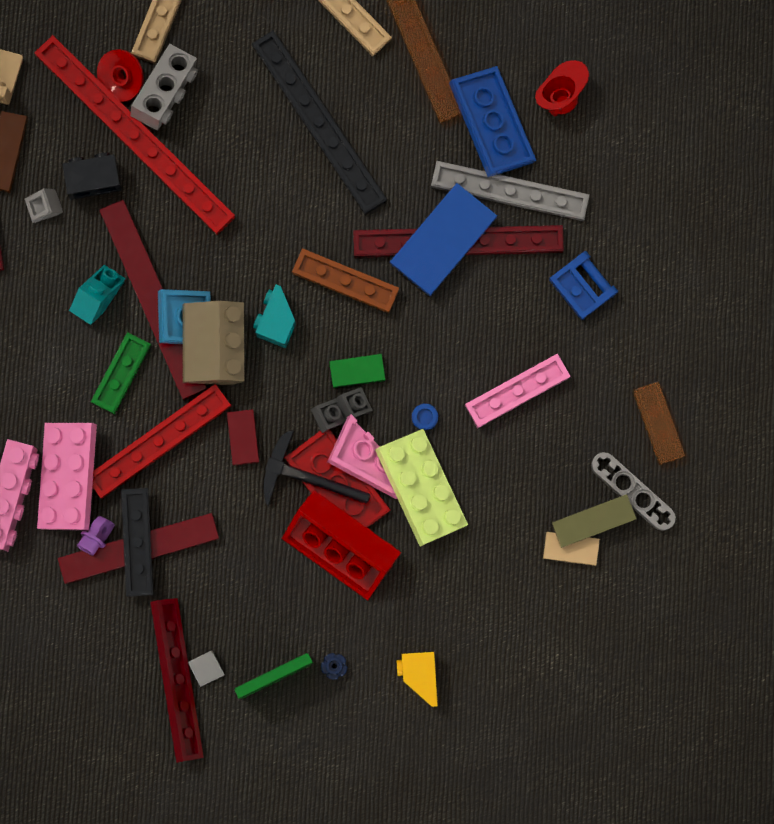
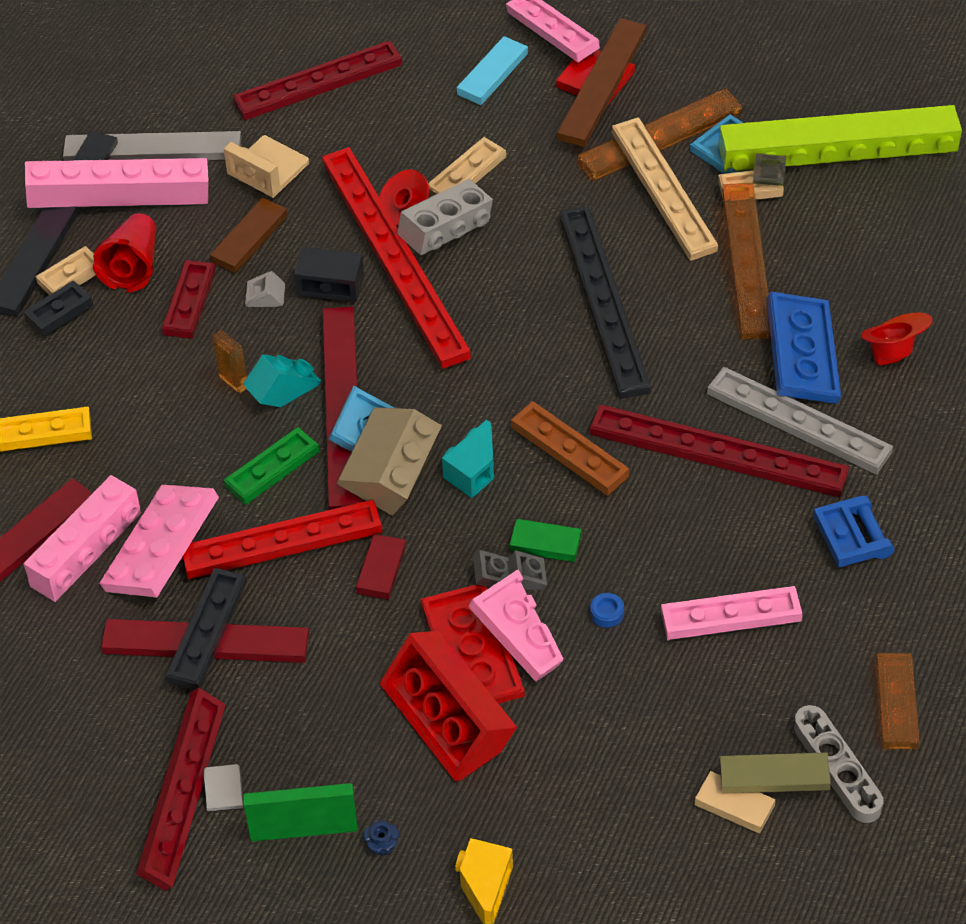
camera: 25 degrees right, 30 degrees down
(51, 296) = (230, 360): none -> clear orange tile
(96, 535) = (160, 608): medium lavender piece -> none
(276, 466) = (407, 603): black piece -> none
(421, 487) = (572, 675): yellowish green plate -> none
(443, 239) = (700, 437): blue tile -> none

